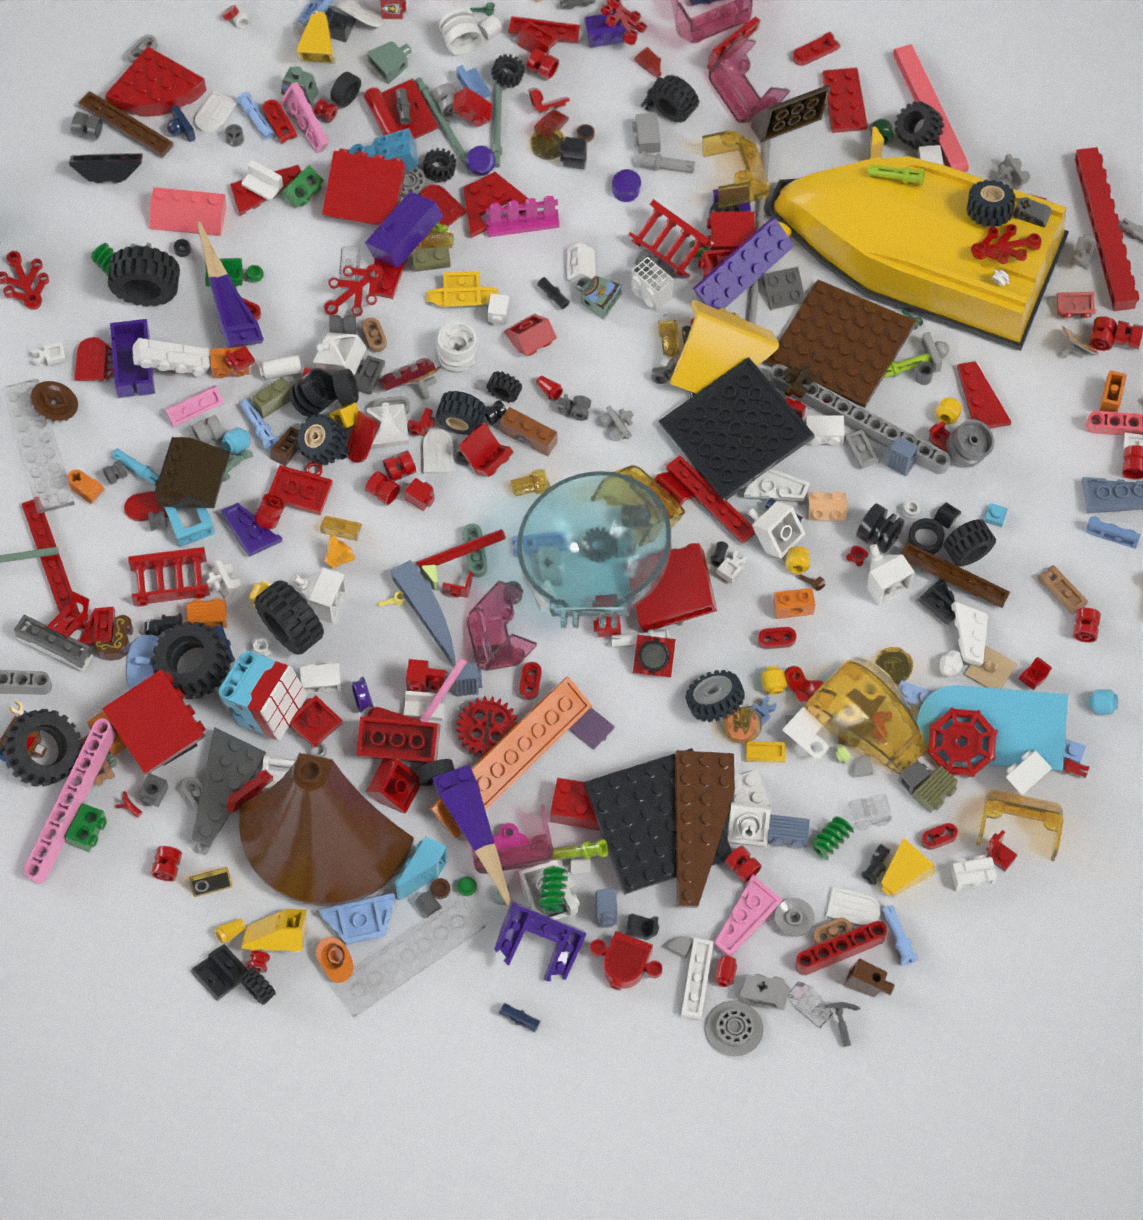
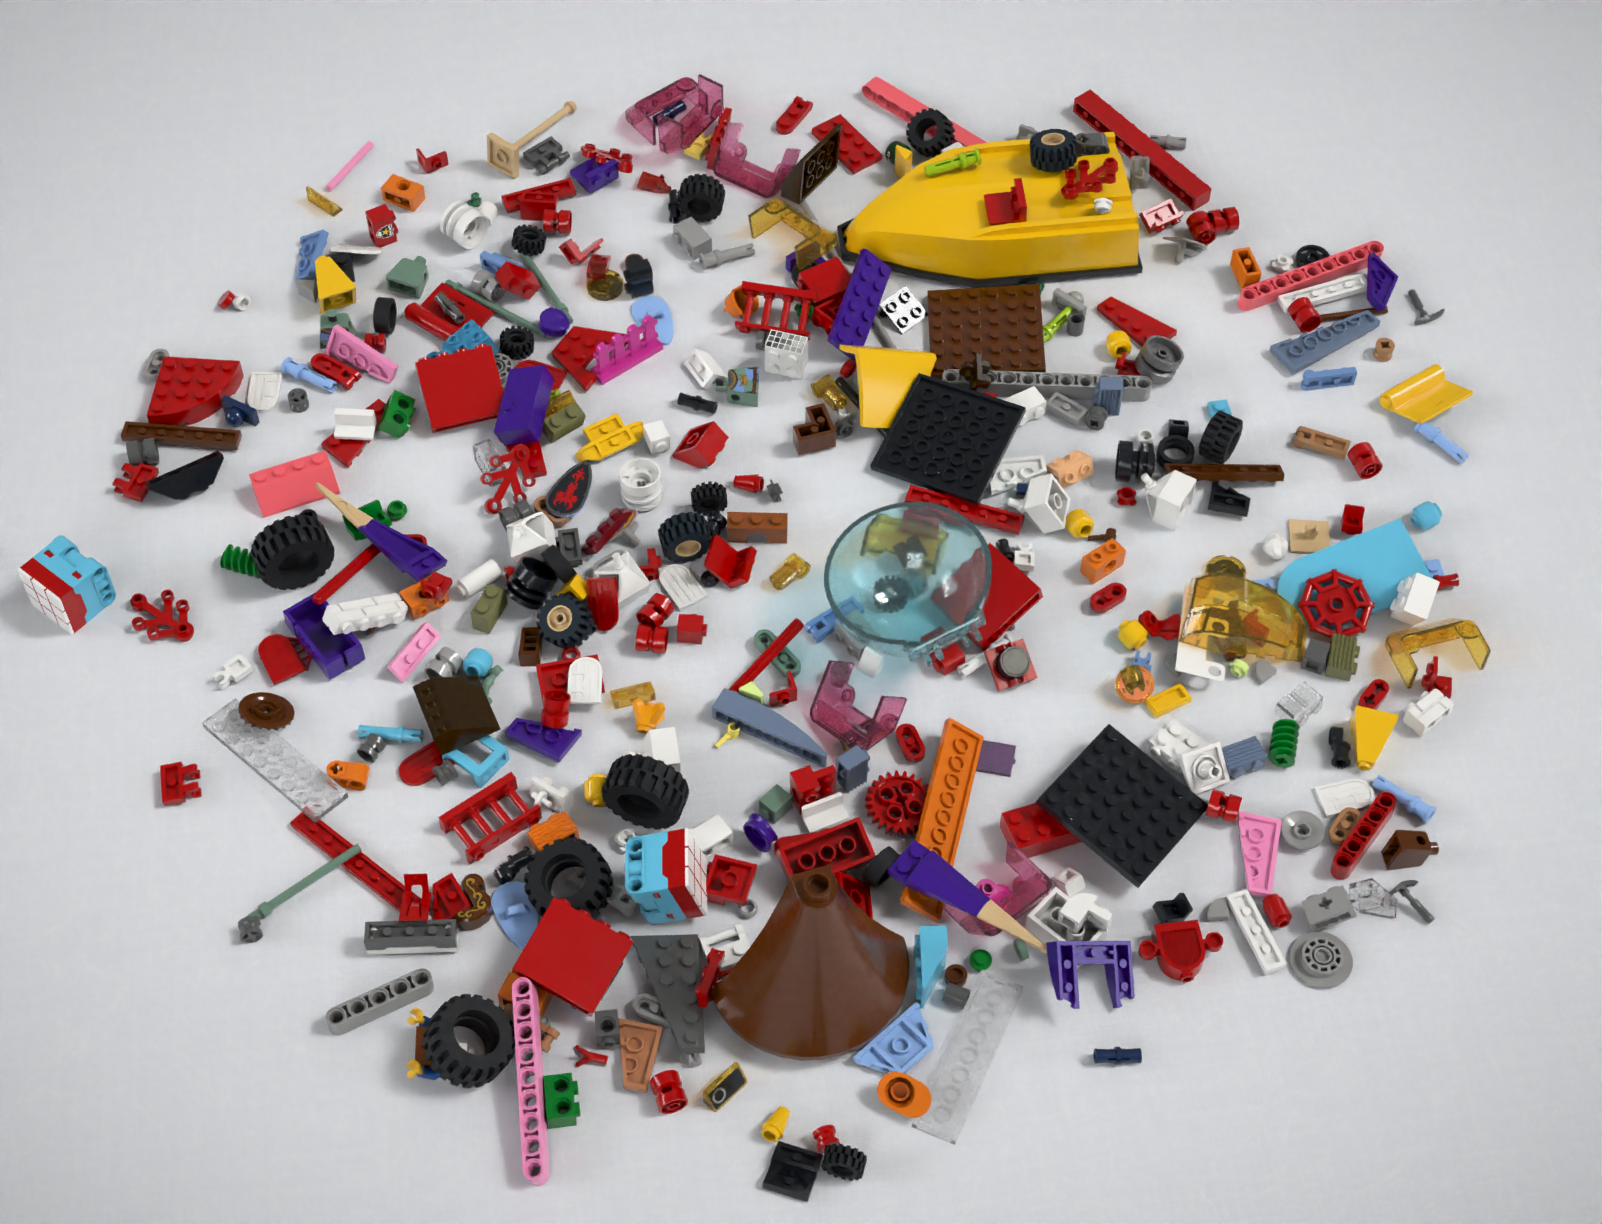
camera: 30 degrees left, 10 degrees down
(74, 146) = (135, 488): none -> red plate
(165, 821) = (638, 1052): none -> nougat wing
(175, 314) = (345, 574): none -> red axle
(262, 430) = (497, 642): light blue pin -> none
(278, 931) = (828, 1097): yellow slope -> none
(307, 499) = (585, 681): none -> white window
(390, 677) = (775, 804): none -> sand green brick
(398, 324) = (570, 491): none -> shield
(443, 690) = (841, 786): bright pink bar -> none
(552, 888) = (1081, 908): green piece -> none
(571, 191) = (657, 309): none -> light blue shield
(580, 409) = (790, 485): dark grey wheel -> none
(587, 850) = (1076, 864): lime pin -> none
(606, 907) = (1130, 908): sand blue brick -> none
(612, 417) = (834, 480): light grey hips -> none
(626, 185) = (702, 288): dark purple piece -> none
(631, 370) = (816, 432): none -> reddish brown brick
(642, 213) = (736, 302): none -> orange piece
(702, 804) = (1157, 774): reddish brown wing -> none
(708, 44) = (698, 147): none -> light yellow plate
(715, 695) = (1094, 670): black wheel -> none
(881, 470) = (1096, 418): none -> dark grey wheel
(913, 238) = (1007, 206): none -> red bracket
(972, 632) = (1273, 509): white wing -> none

